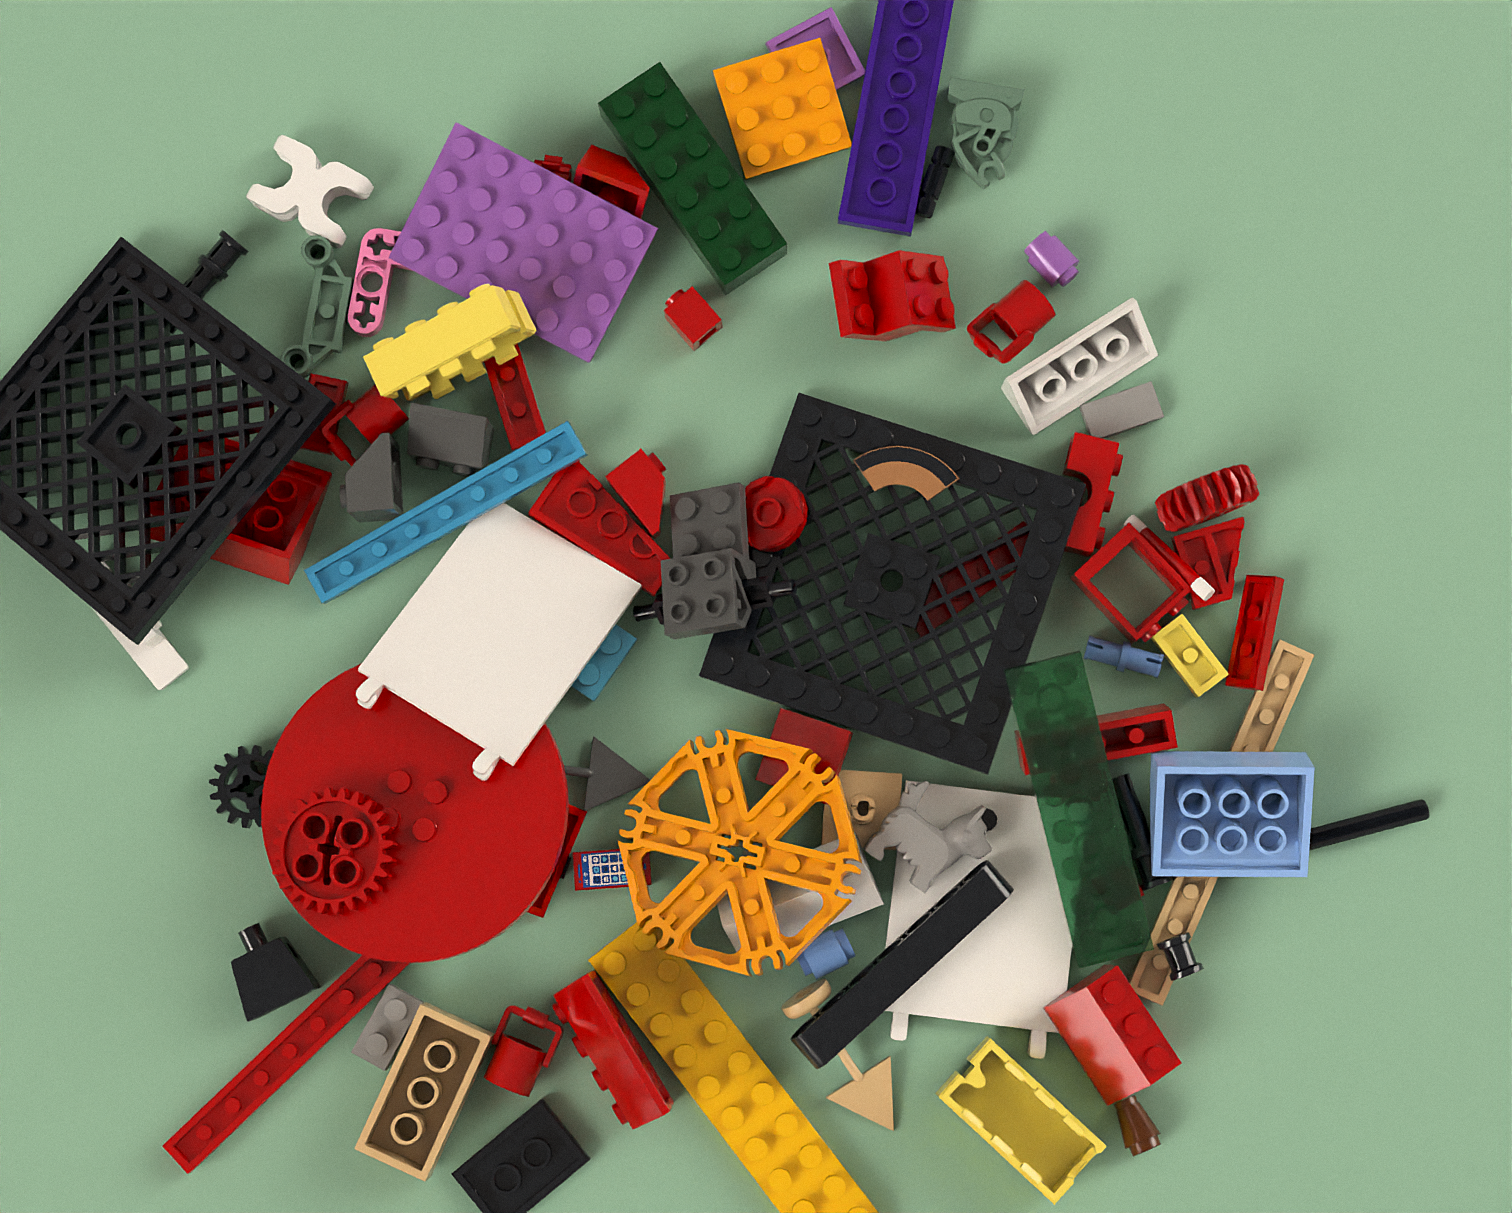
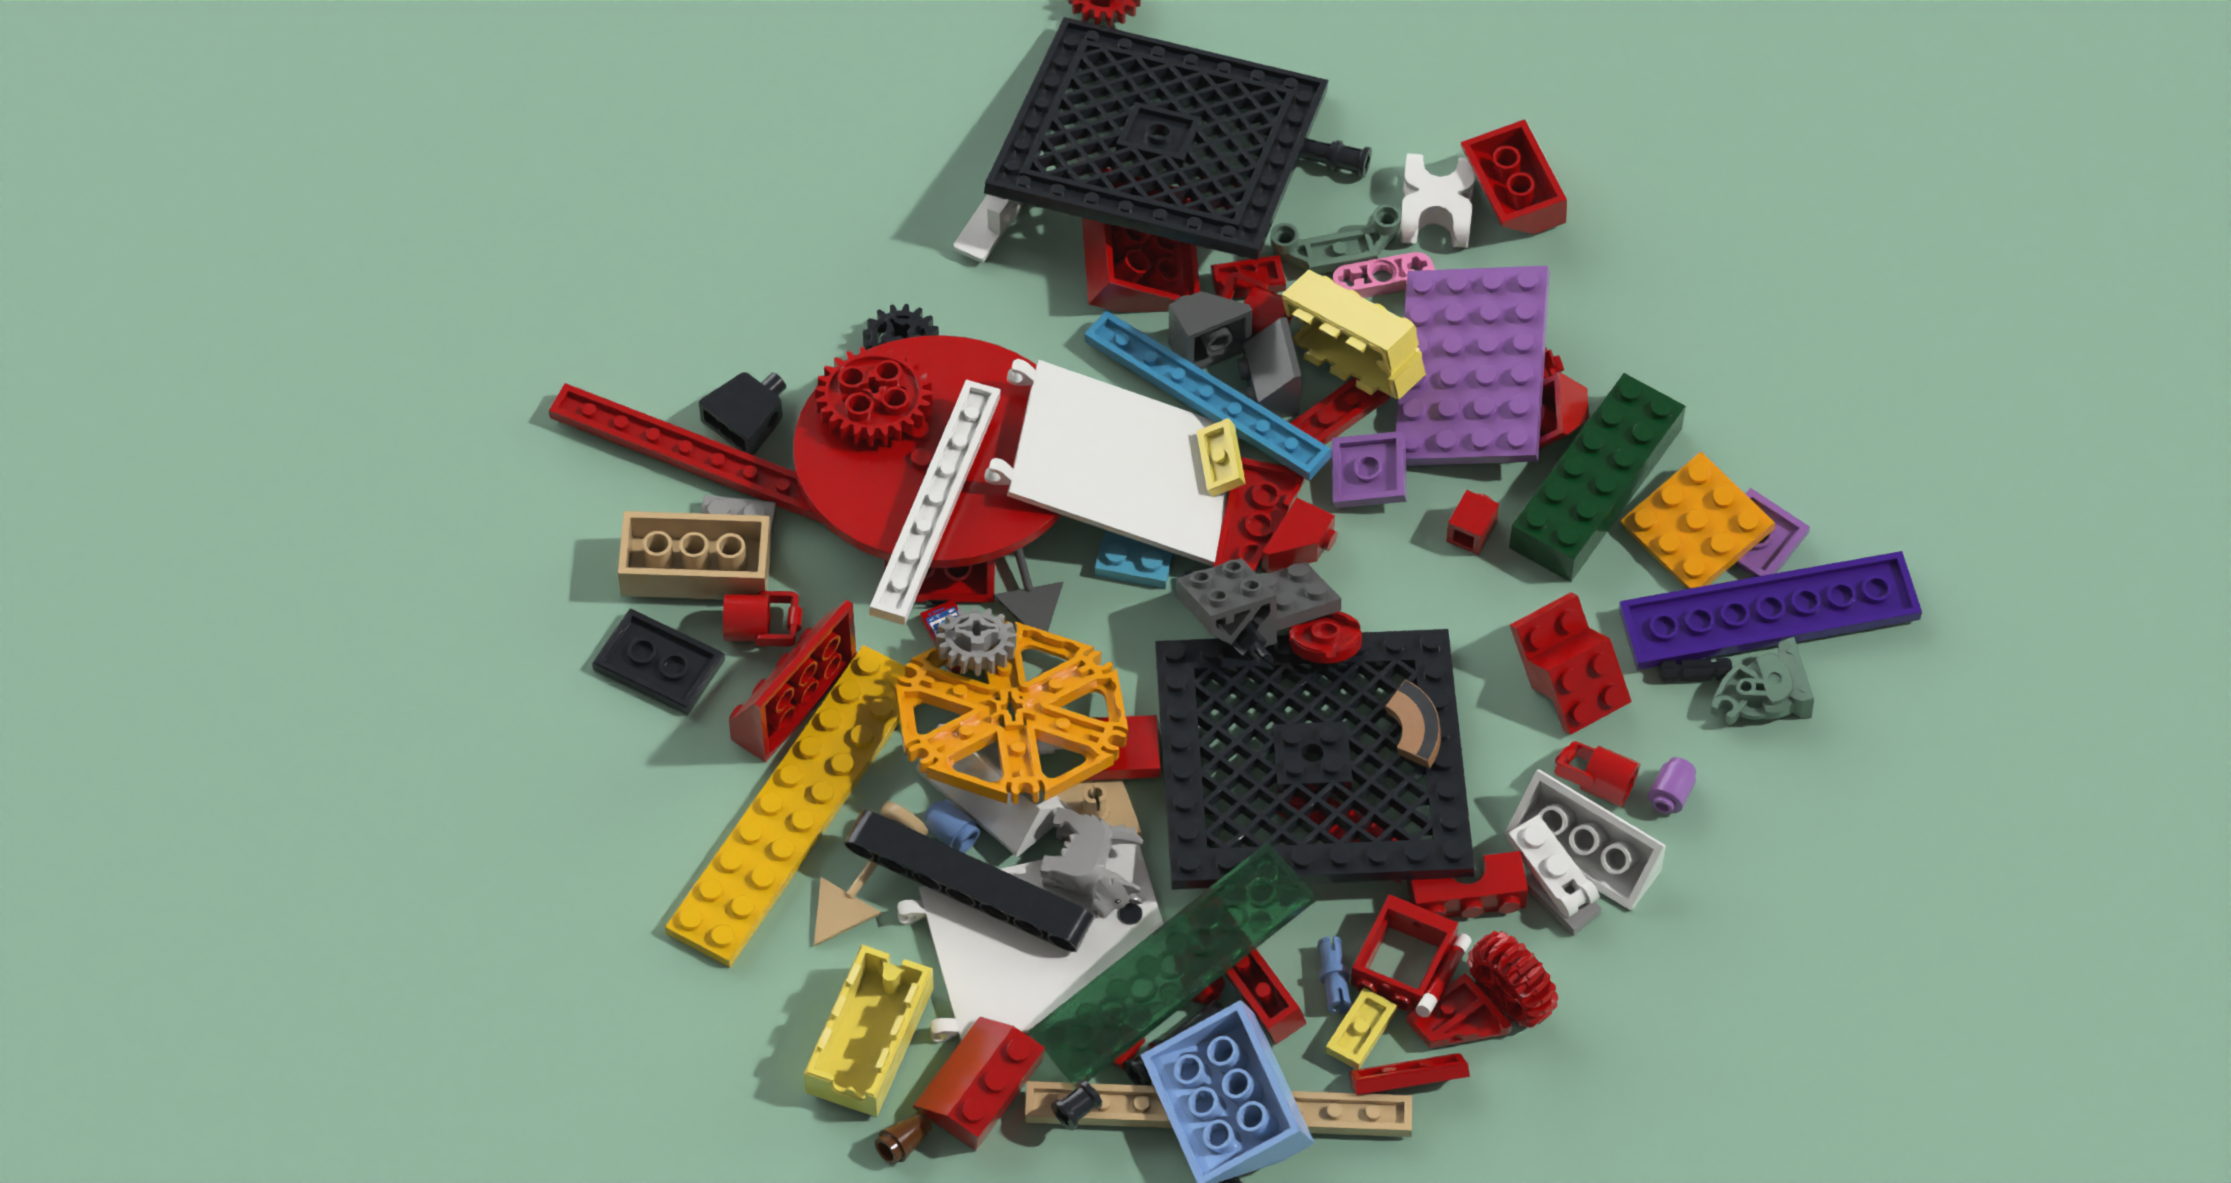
camera: 65 degrees right, 25 degrees down
(324, 105) = (1517, 178): none -> red slope
(491, 840) = (934, 502): none -> white plate
(529, 530) = (1220, 457): none -> light yellow plate
(595, 391) = (1369, 469): none -> medium lavender plate
(653, 842) = (976, 641): none -> light grey gear
(1097, 408) = (1552, 866): none -> white plate

